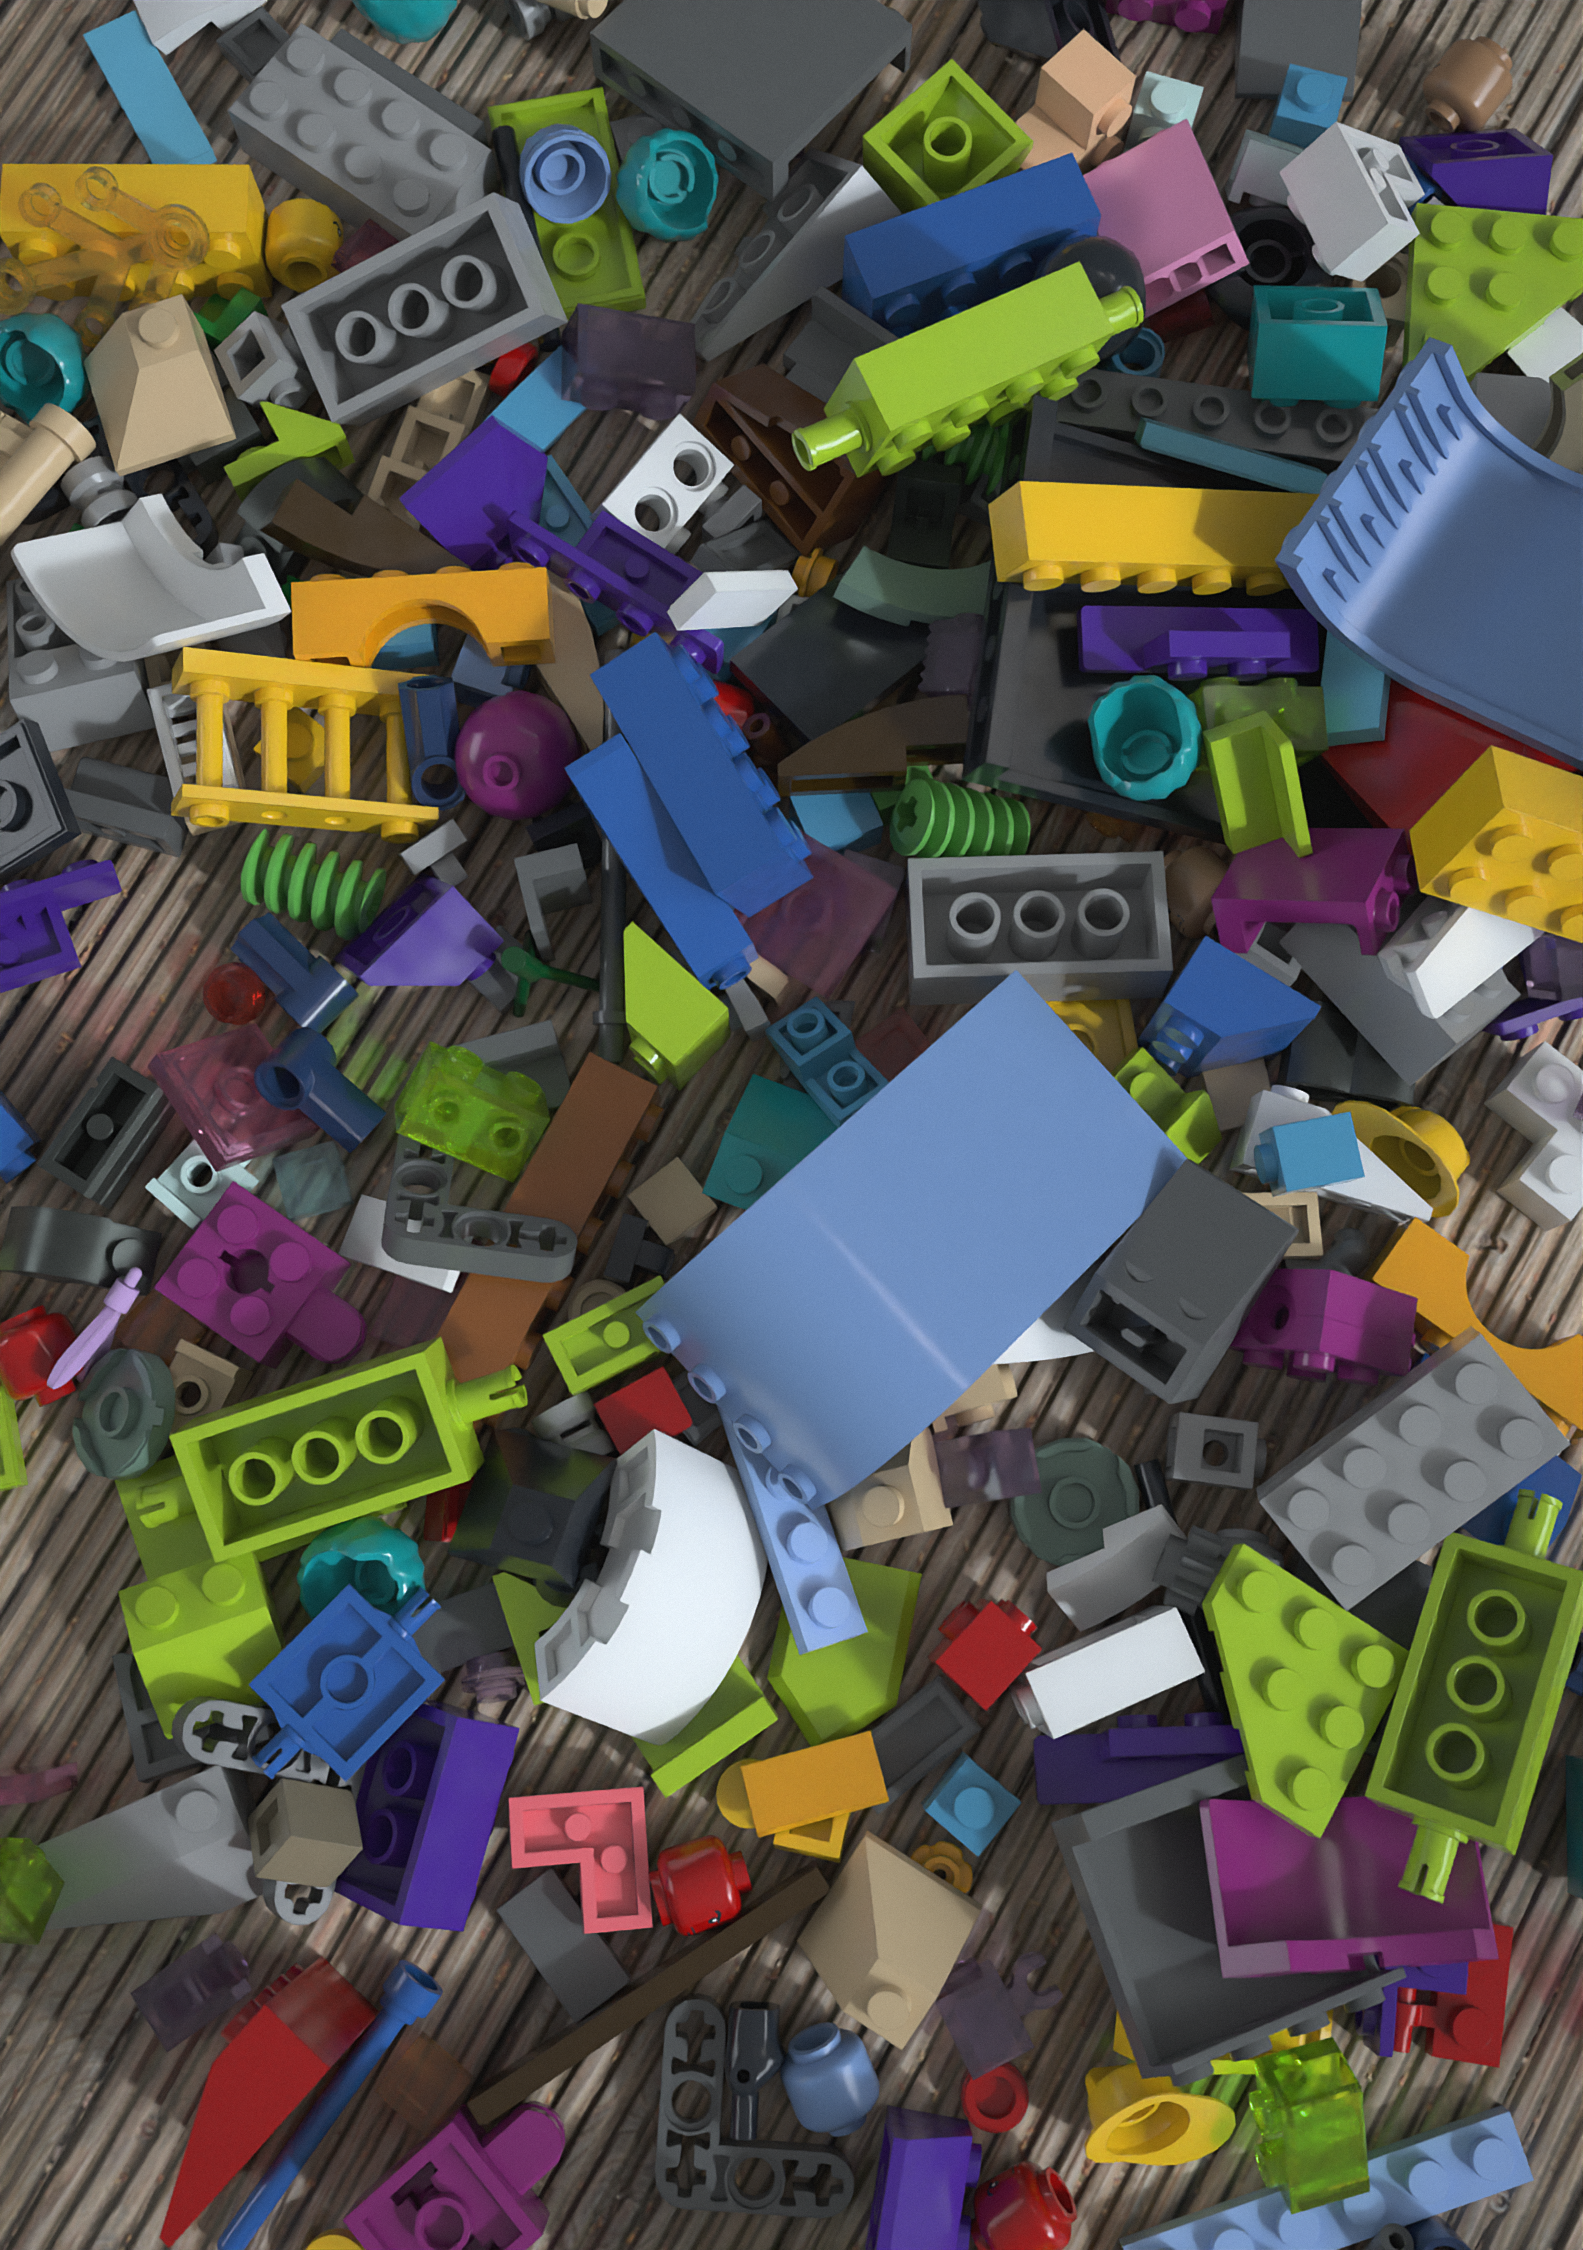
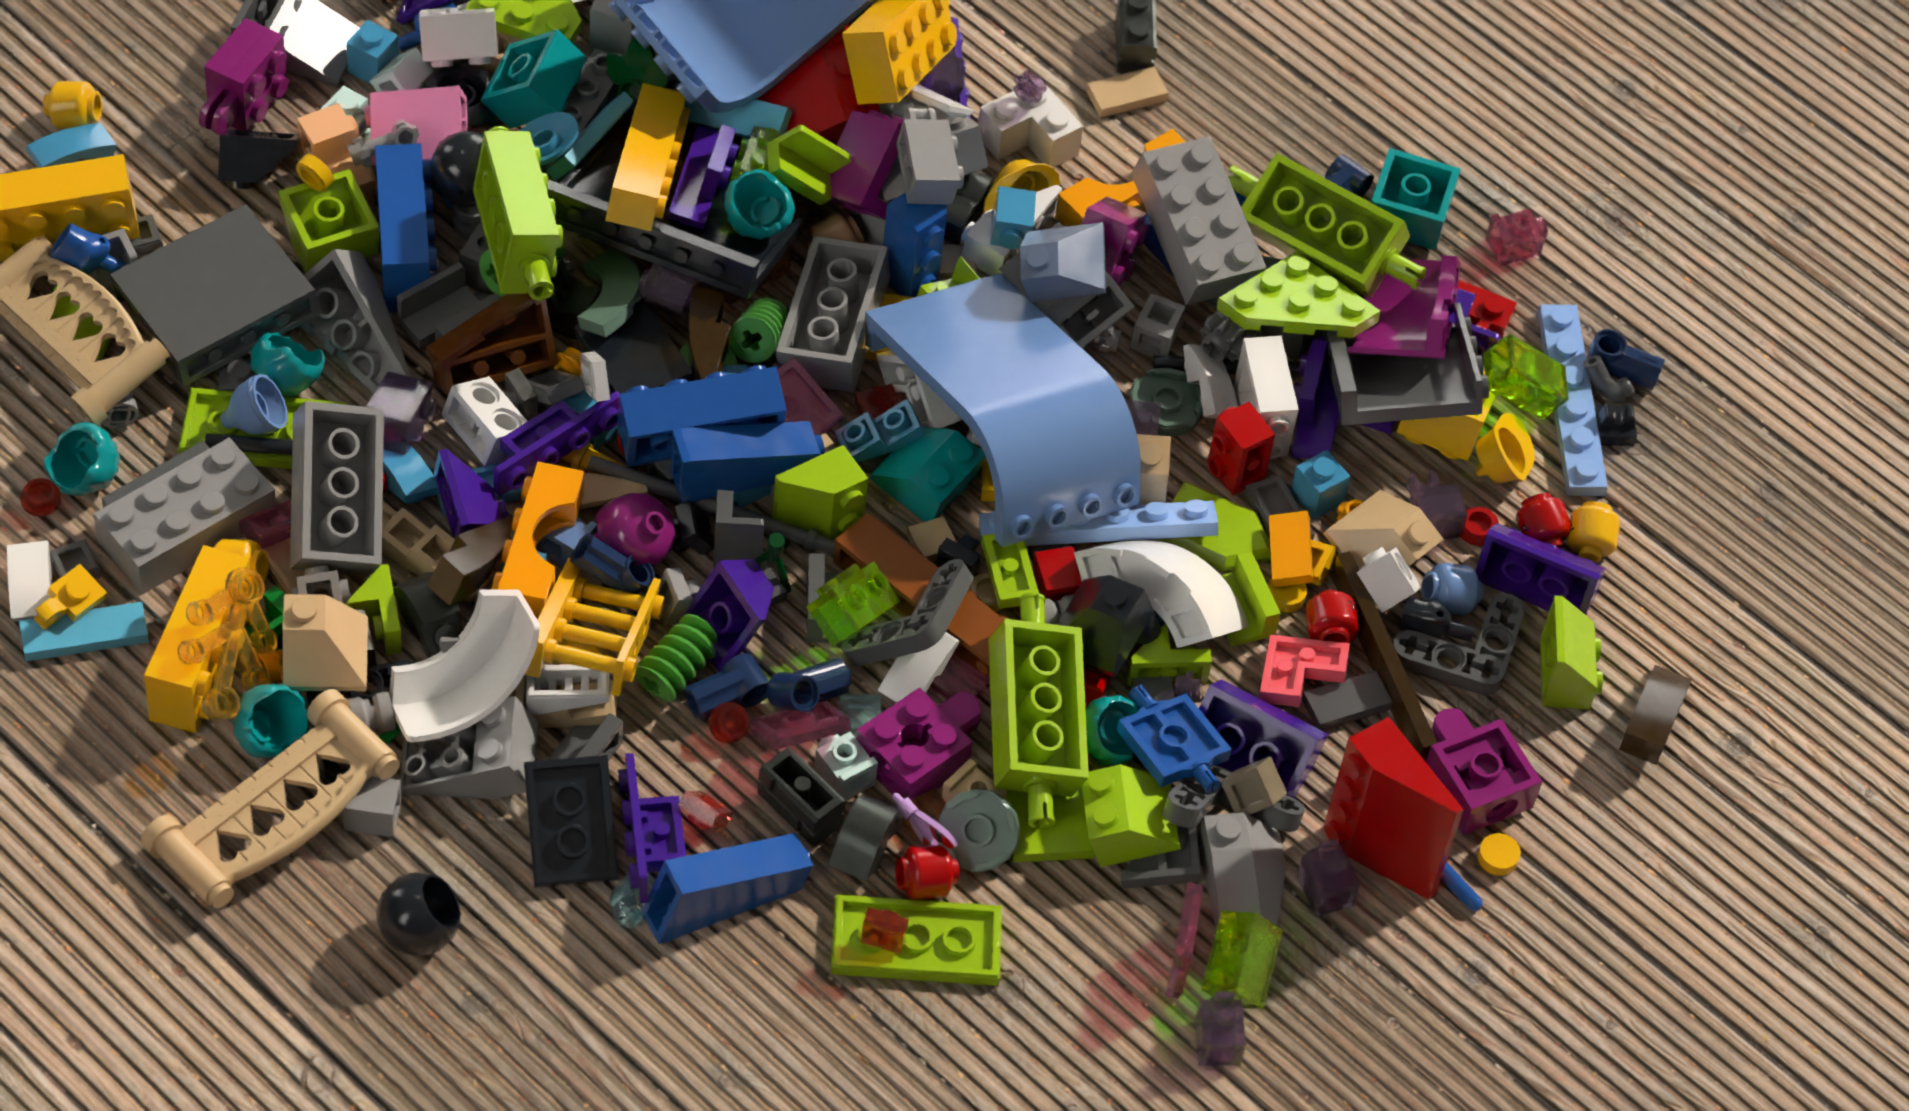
camera: 80 degrees left, 25 degrees down
(68, 1004) = (705, 810): none -> clear red plate
(176, 52) = (70, 595): none -> yellow plate
(793, 1969) = (1387, 578): none -> white brick
(986, 87) = (314, 173): none -> yellow tile
(1111, 187) = (401, 133): none -> light grey bar
(1176, 386) = (553, 134): none -> dark azure dish
(1210, 1256) = (1063, 262): none -> sand blue slope
(1307, 970) = (928, 158): none -> light grey brick

